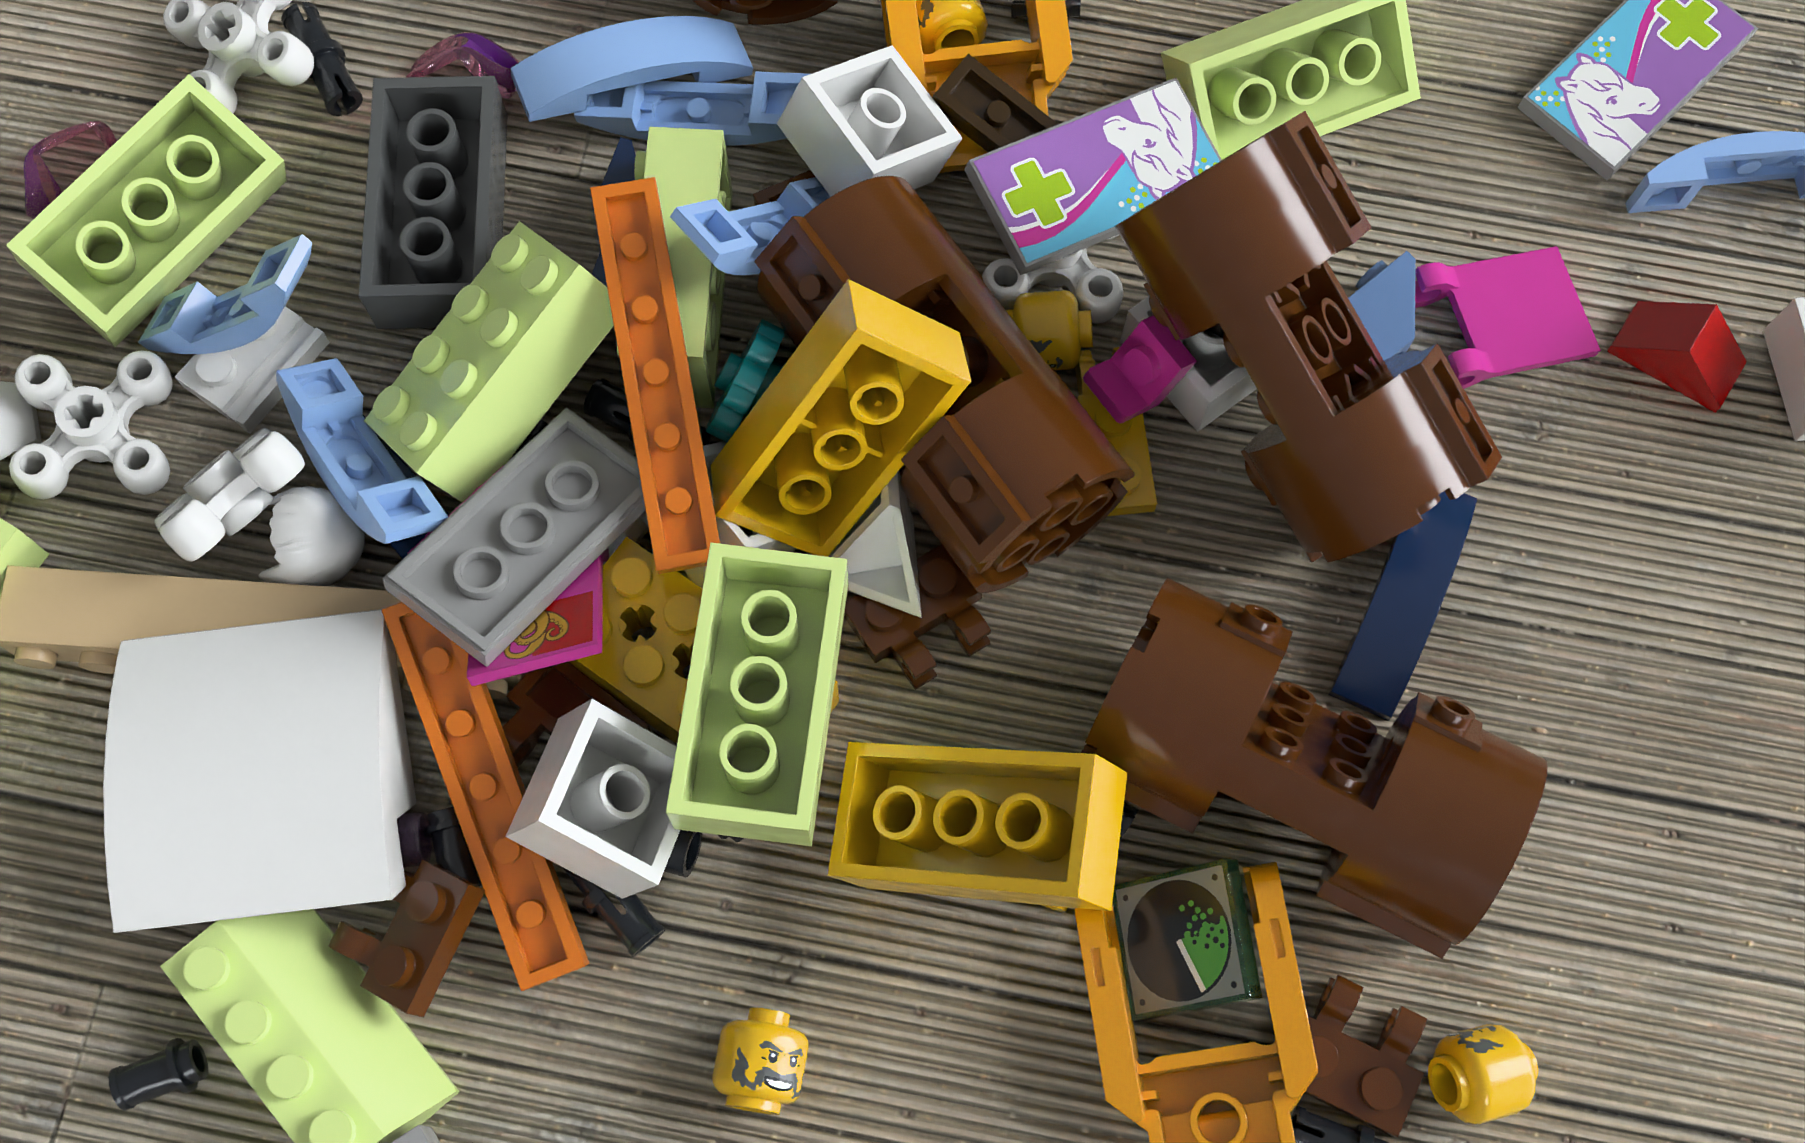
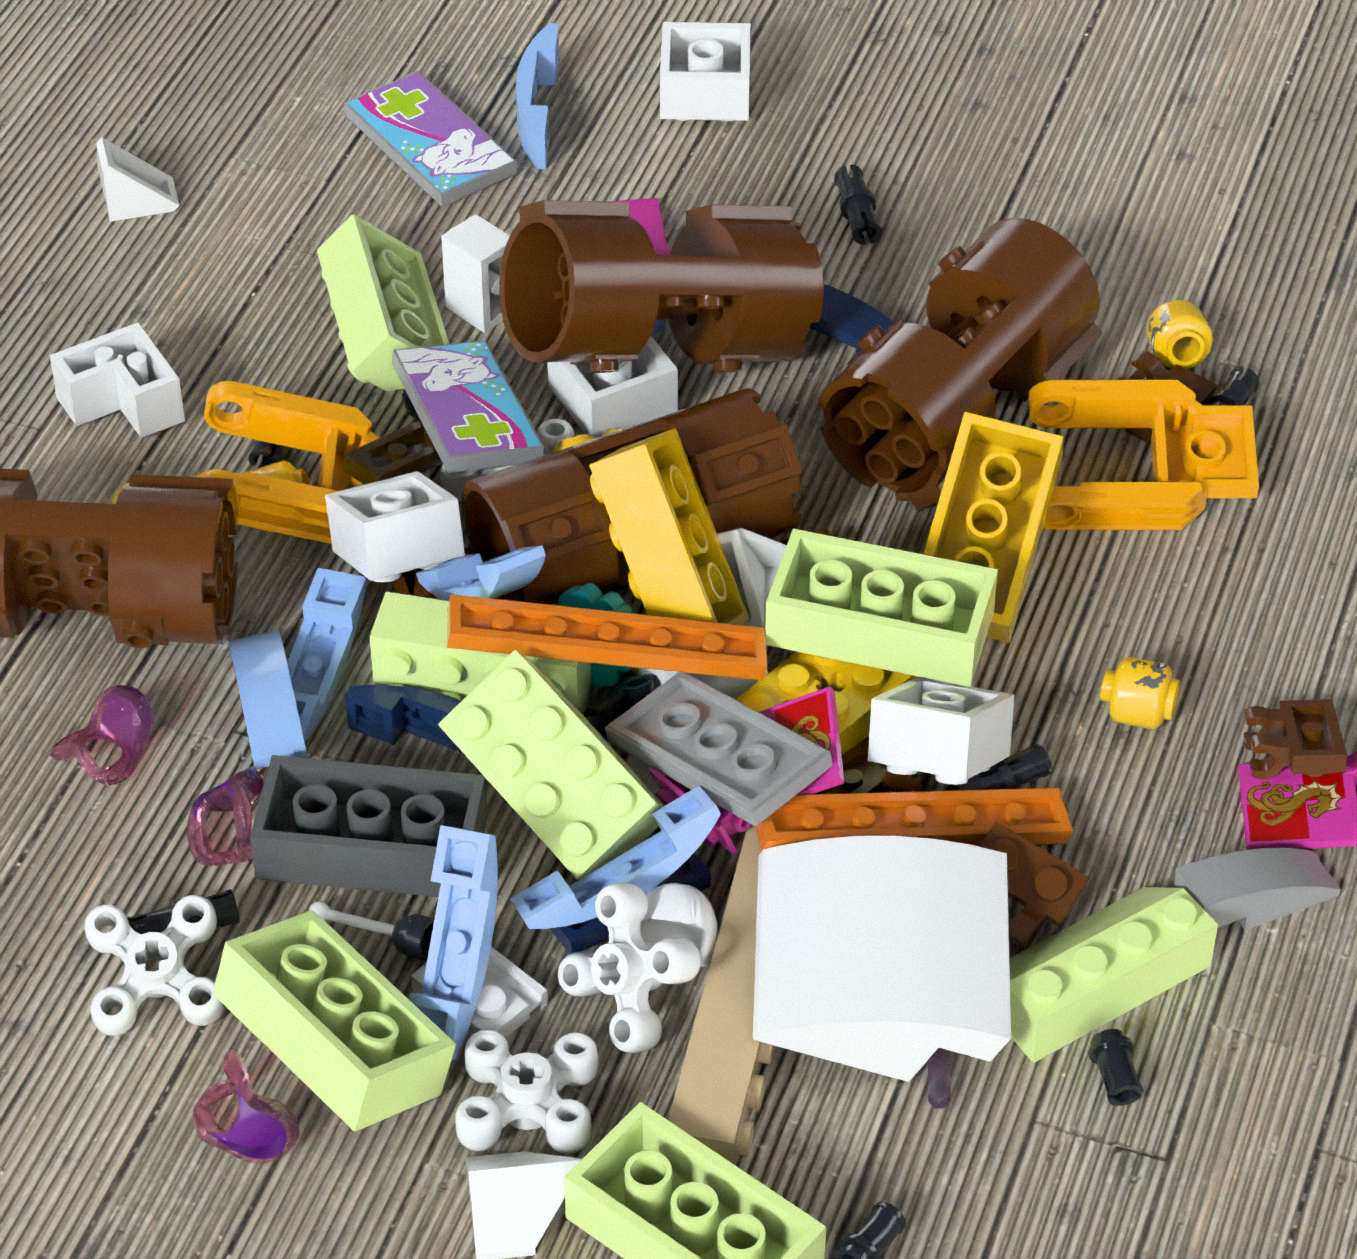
camera: 80 degrees left, 25 degrees down
(319, 279) = (409, 935): none -> black hinge
(1140, 371) = (636, 395): dark pink bracket -> none
(1186, 940) = (1091, 442): tile -> none
(1386, 177) = (472, 271): none -> white brick
(1655, 602) = (857, 204): none -> black pin
(1682, 348) = (664, 158): red slope -> none

